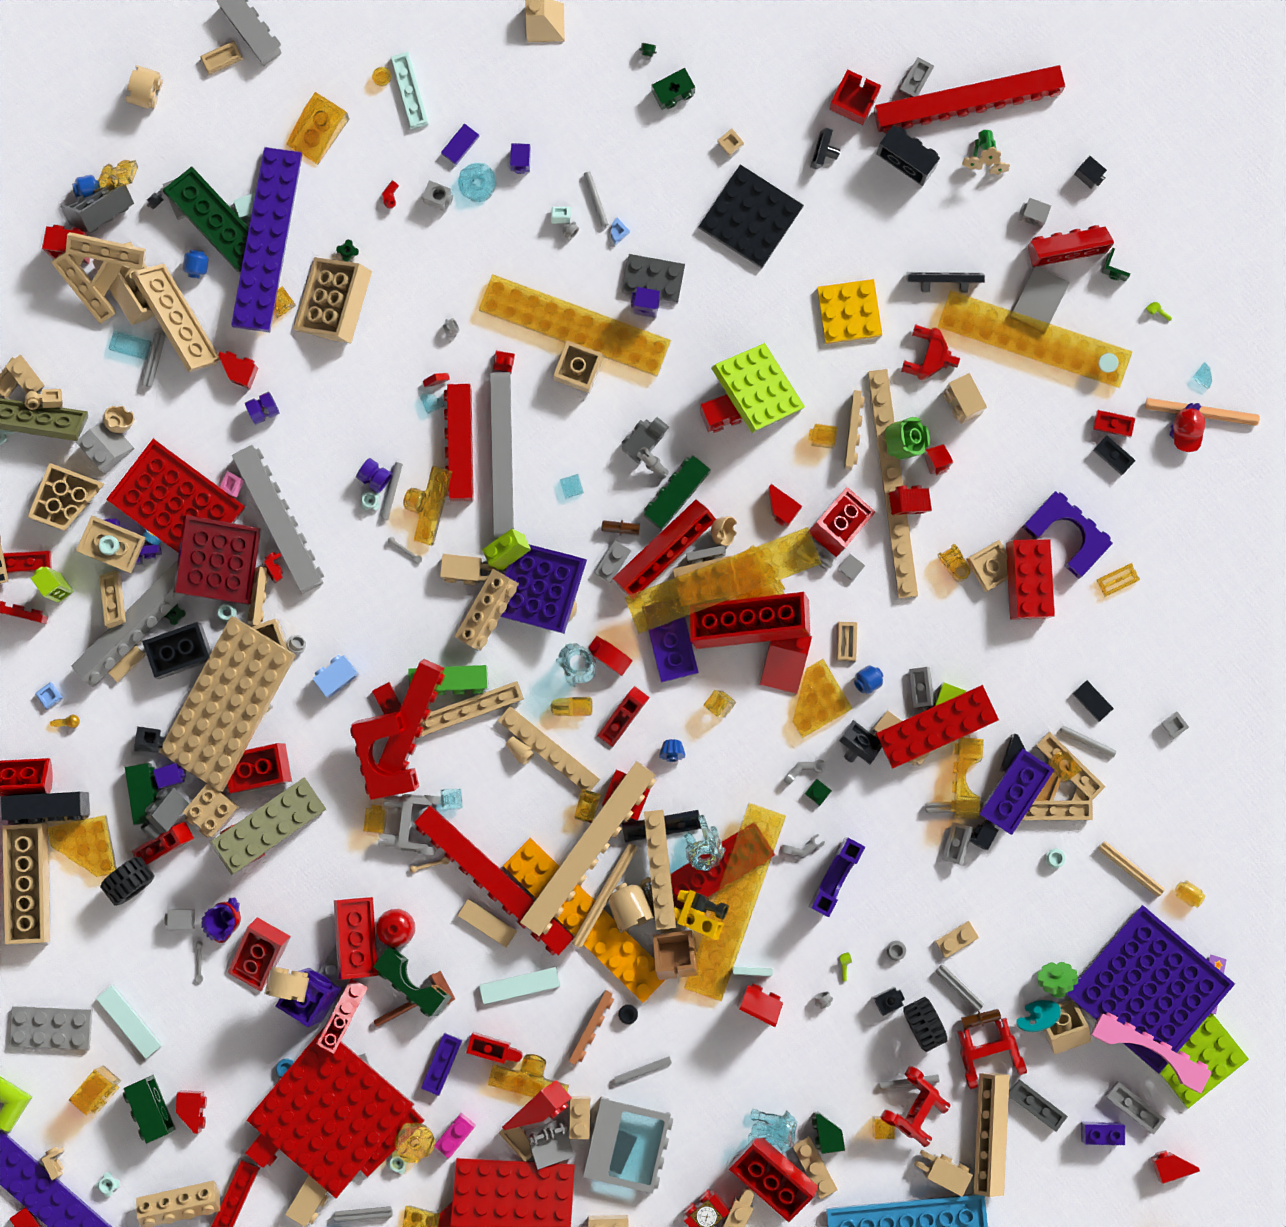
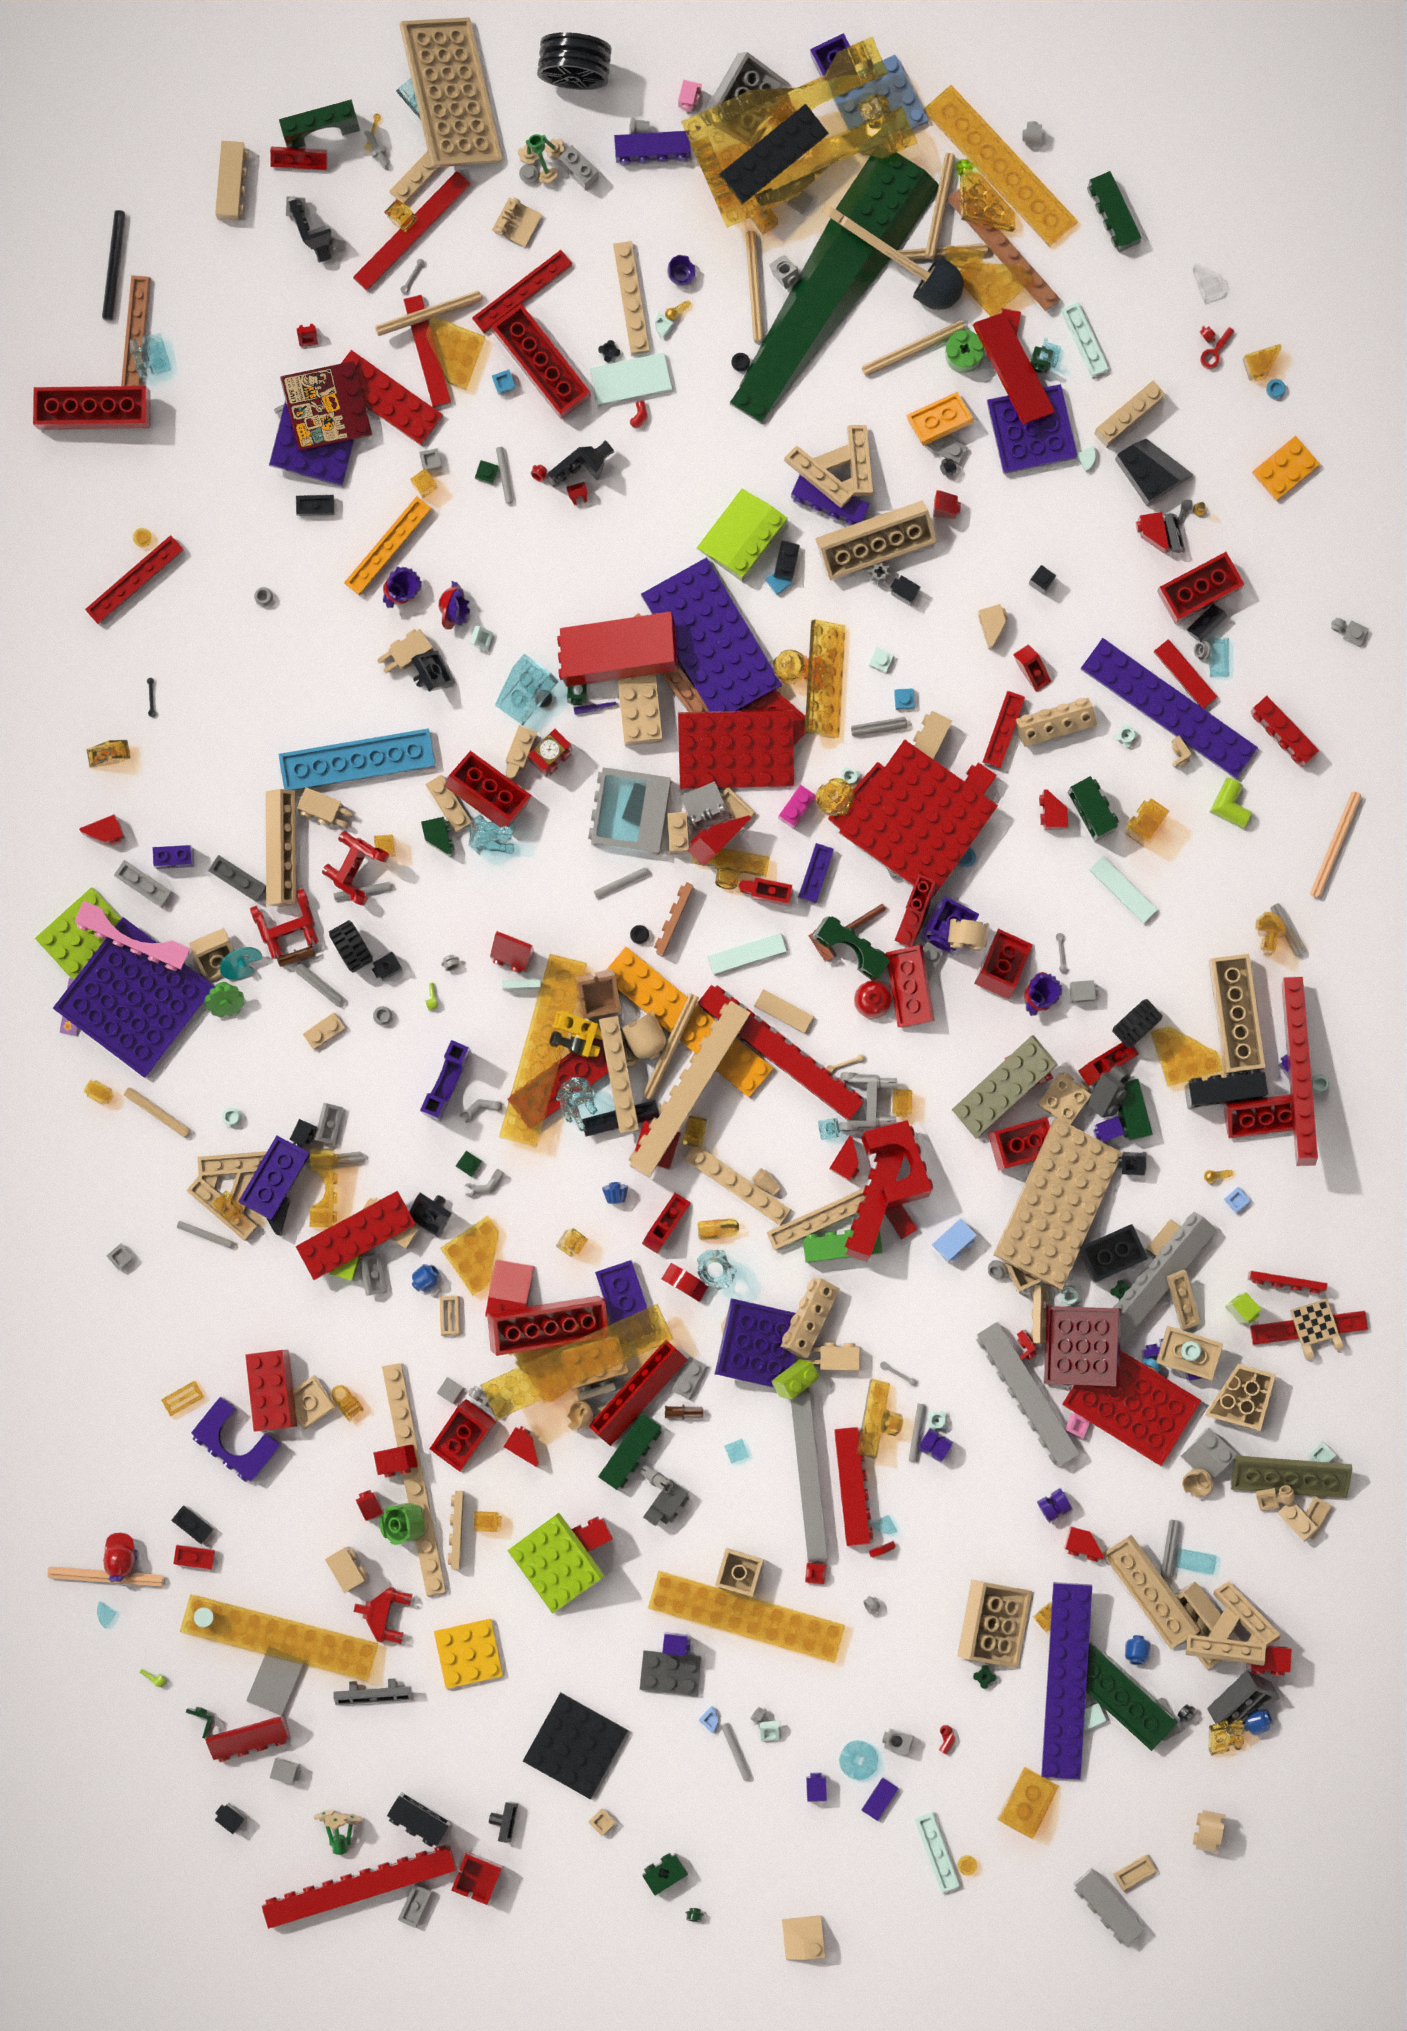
camera: 175 degrees right, 0 degrees up
(51, 1027) = (1198, 878): light grey plate -> none
(436, 765) = (846, 1161): none -> red slope
(1092, 701) = (202, 1275): black tile -> none

